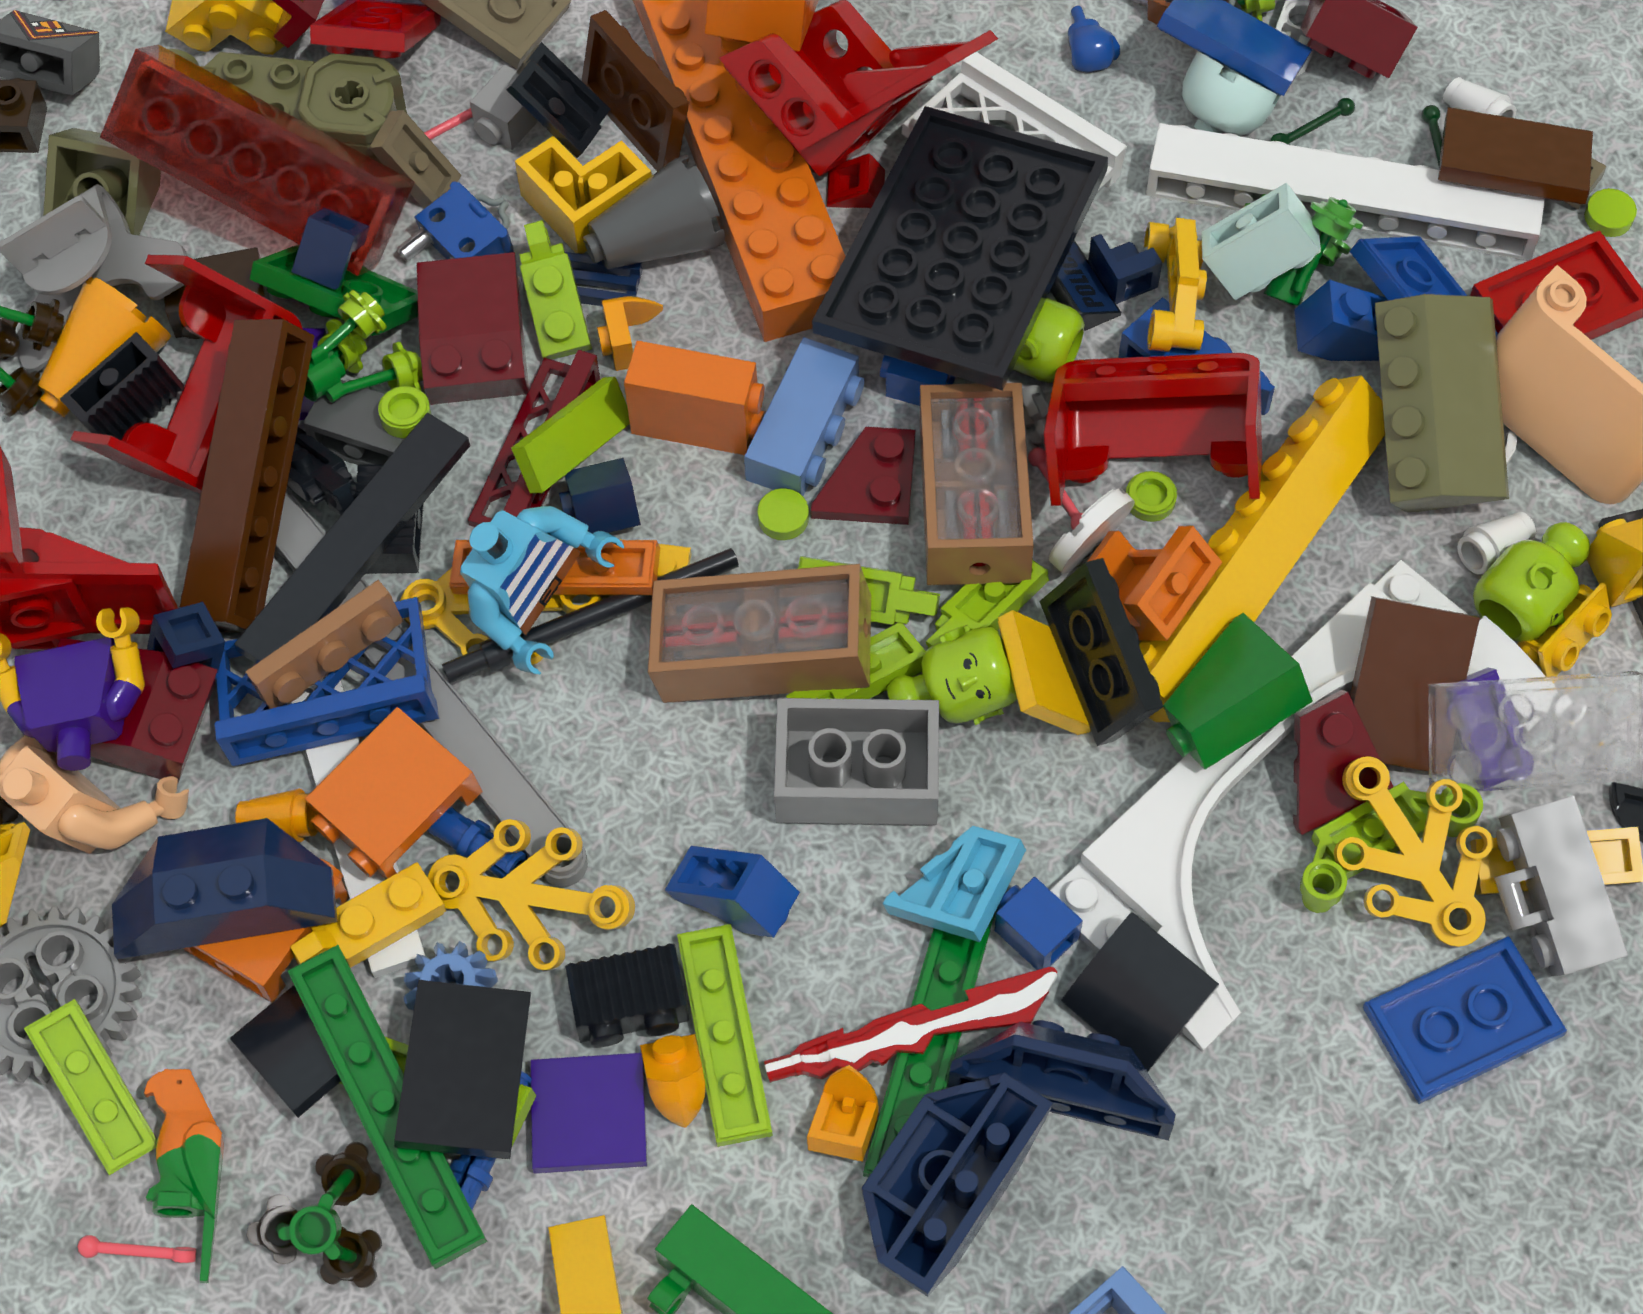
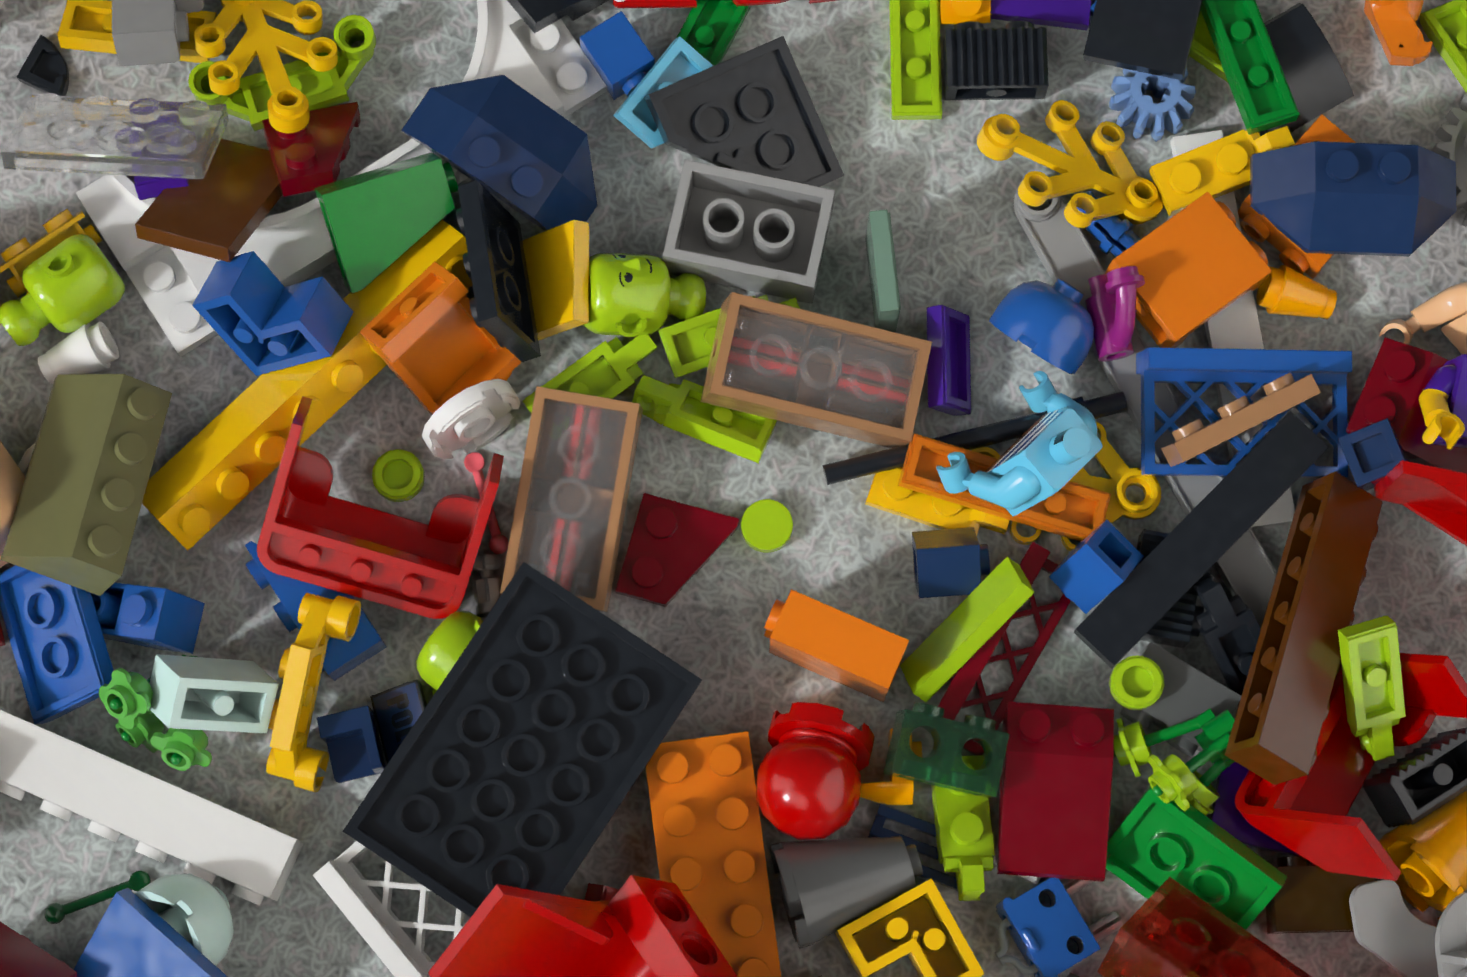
camera: 170 degrees left, 15 degrees up
(179, 438) = (1372, 683): none -> lime hinge
(328, 247) = (1197, 886): dark blue panel -> none
(453, 504) = (1096, 566): none -> blue brick
(467, 736) = (1114, 311): none -> magenta plant
(536, 713) = (1047, 322): none -> blue cylinder
(575, 316) = (944, 763): none -> clear green brick
(629, 685) = (949, 361): none -> dark purple tile
(697, 281) = (812, 772): none -> red tile
(710, 736) = (882, 270): none -> sand green tile
(735, 888) = (887, 138): blue arch -> none
(804, 418) = (728, 615): medium blue brick -> none
(881, 870) = (749, 118): none -> black plate
(1129, 779) = (510, 147): none -> dark blue wedge
(1313, 573) = (269, 322): none -> blue brick

